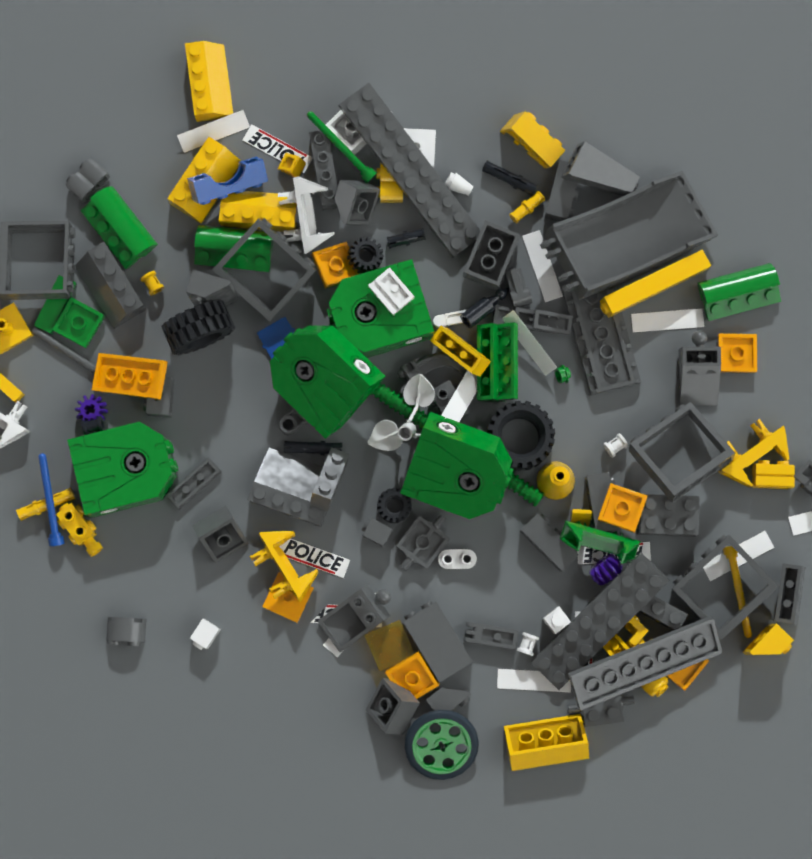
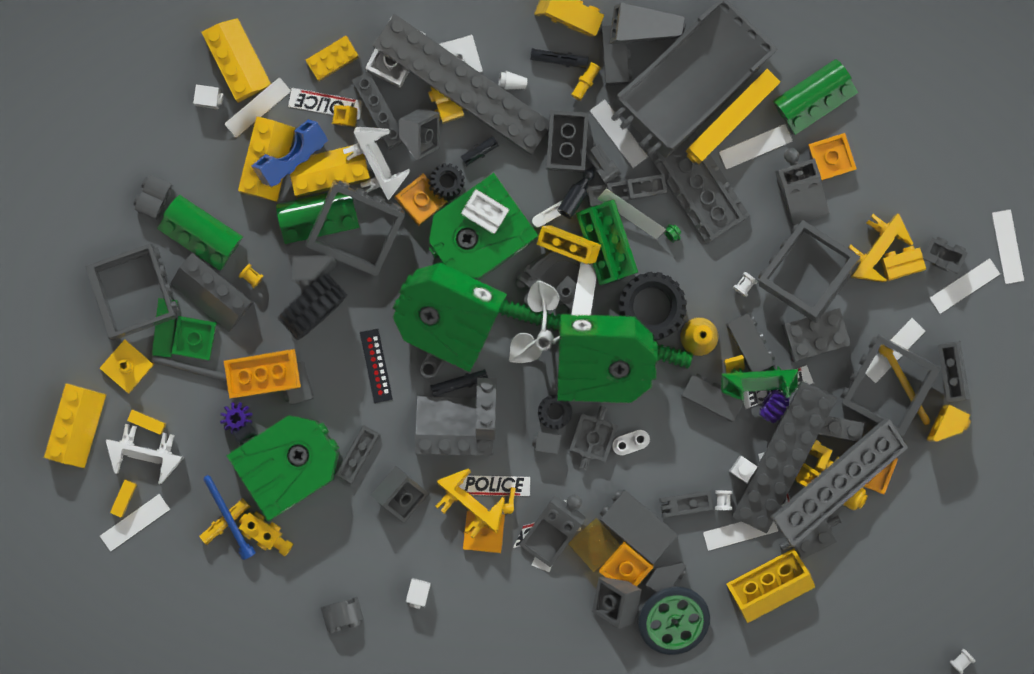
camera: 20 degrees left, 5 degrees up
(170, 105) = (208, 97): none -> white brick
(240, 406) = (376, 365): none -> black sticker
(274, 334) = (387, 287): blue piece -> none
(295, 109) = (332, 58): none -> yellow piece
(320, 582) = (509, 507): none -> yellow hand
(366, 172) = (420, 100): green piece -> none
(622, 508) = (771, 343): light orange plate -> none

